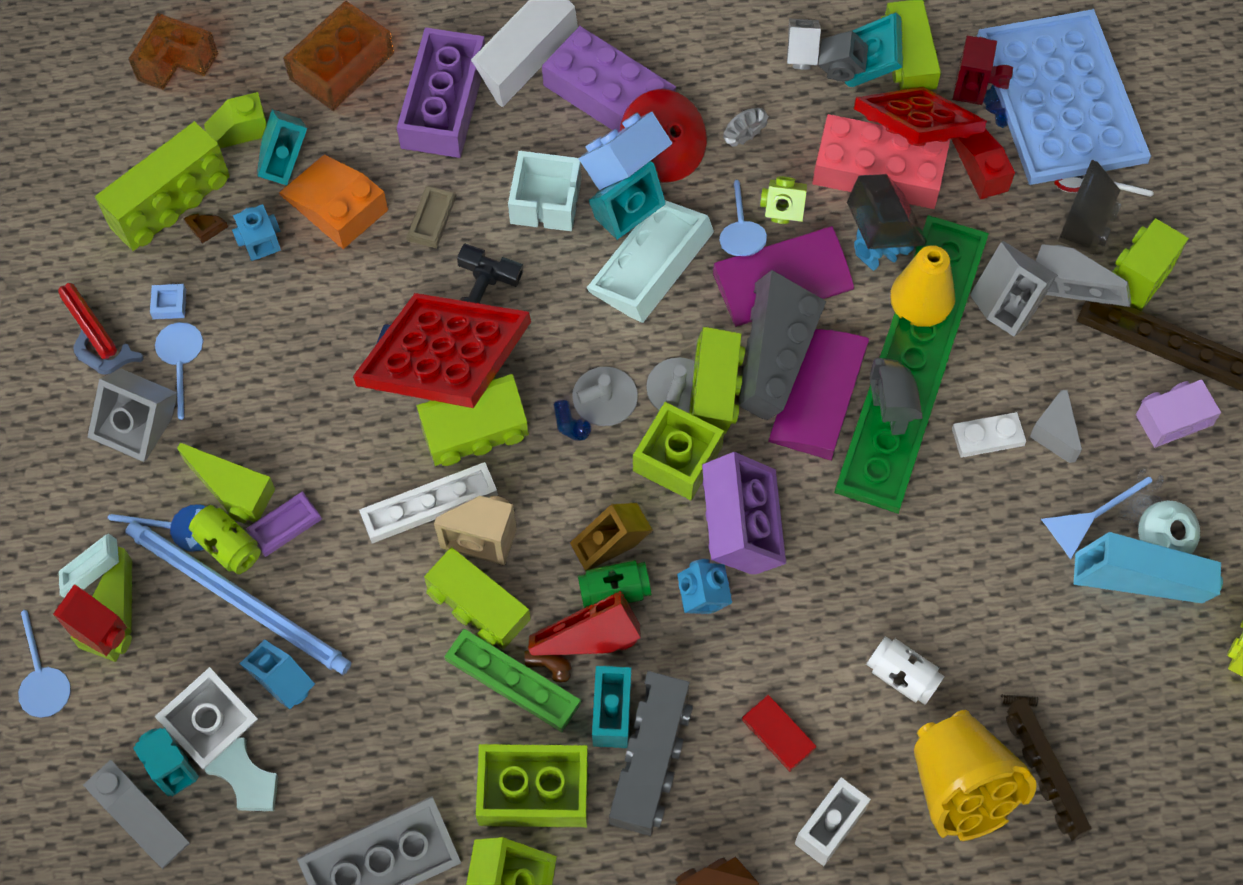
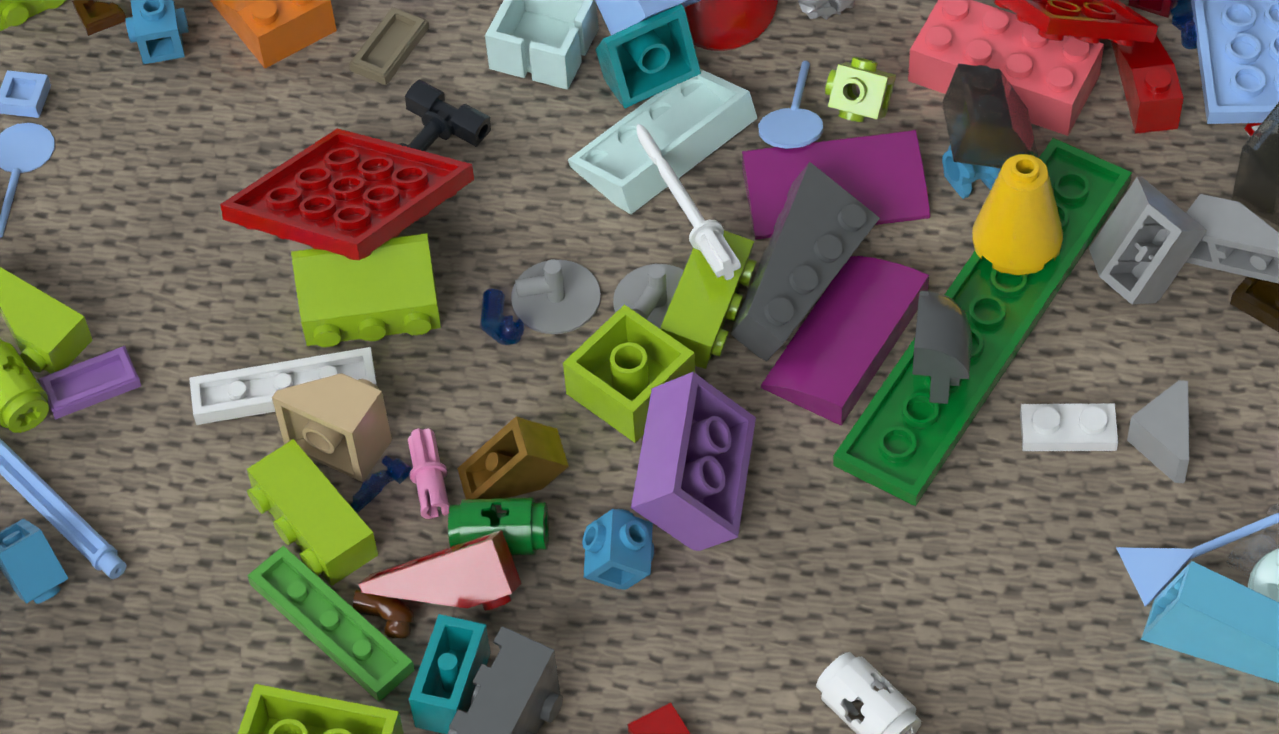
camera: 15 degrees right, 10 degrees down
(527, 553) = (396, 470): none -> clear blue piece
(551, 551) = (428, 473): none -> bright pink axle
(710, 338) = (706, 234): none -> white piece

